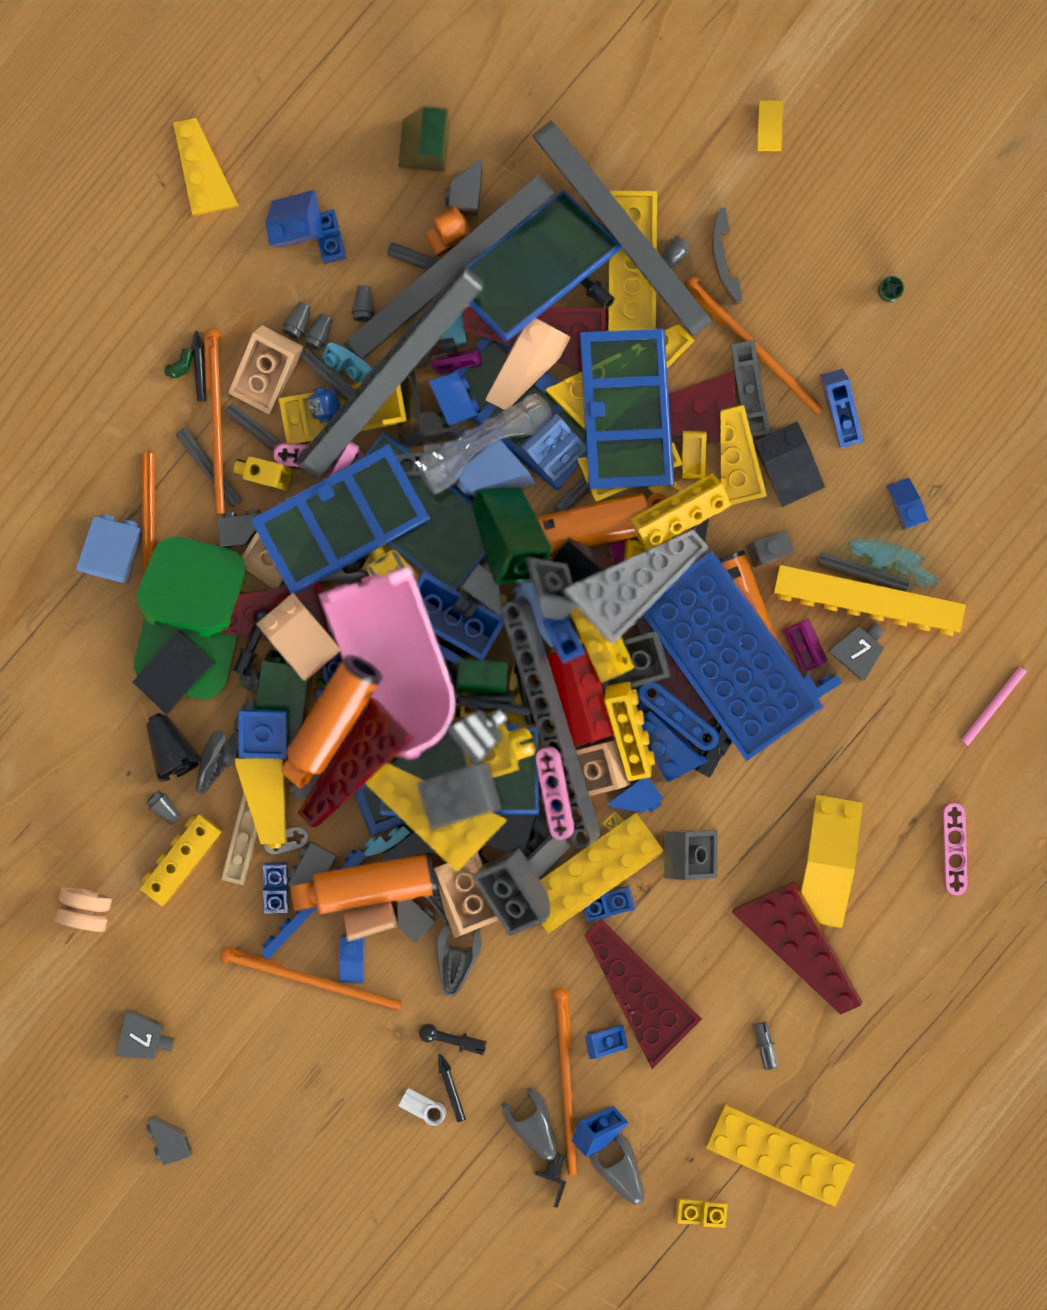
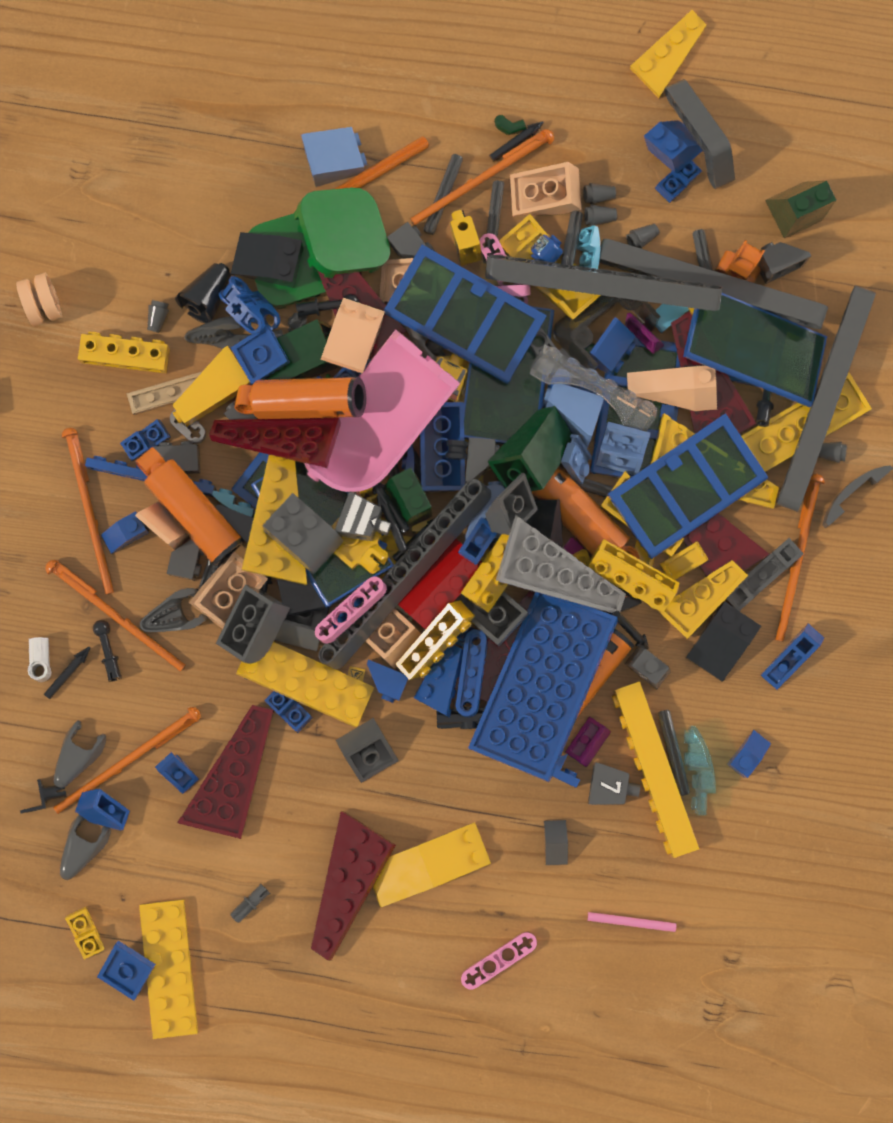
camera: 55 degrees right, 5 degrees down
(201, 719) = (247, 306): none -> blue piece
(299, 186) = (705, 132): none -> dark grey beam
(387, 1025) = (89, 593): none -> orange bar
(539, 498) = (576, 459): none -> medium blue plate
(742, 539) = (626, 625): none -> black piece
(759, 1195) = (126, 970): none -> blue plate
(879, 731) = (556, 842): none -> dark grey slope

